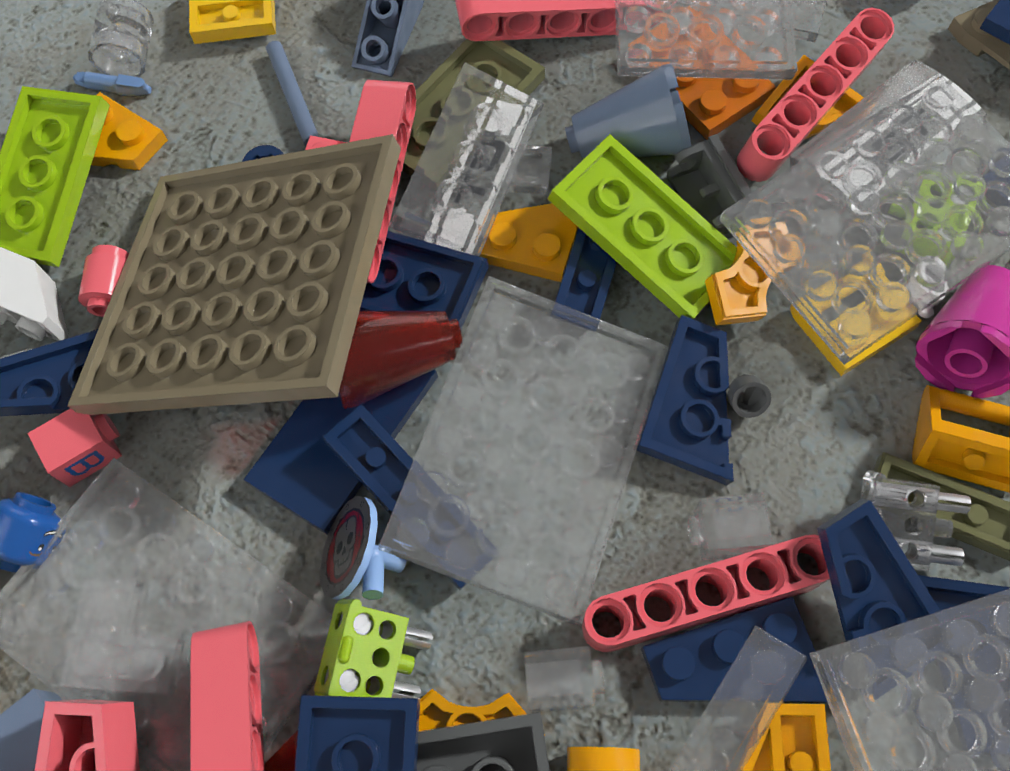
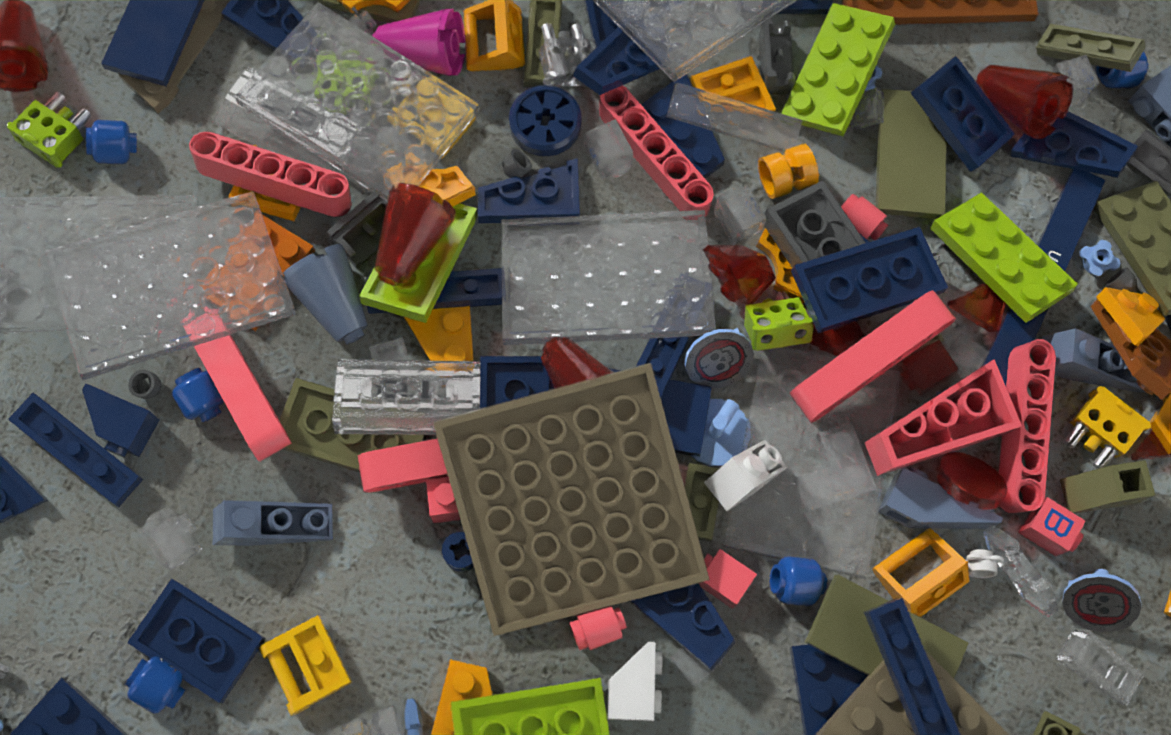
camera: 120 degrees left, 5 degrees up
(170, 511) = (745, 474): none -> white slope
(185, 454) = (701, 500): none -> olive plate
(263, 527) = (722, 433): none -> light blue shield
(291, 91) = (375, 574): sand blue bar -> none
(464, 629) = (740, 271): none -> clear red slope
(670, 200) = (410, 231): none -> clear red cone
(835, 446) = (528, 113): none -> dark blue wheel

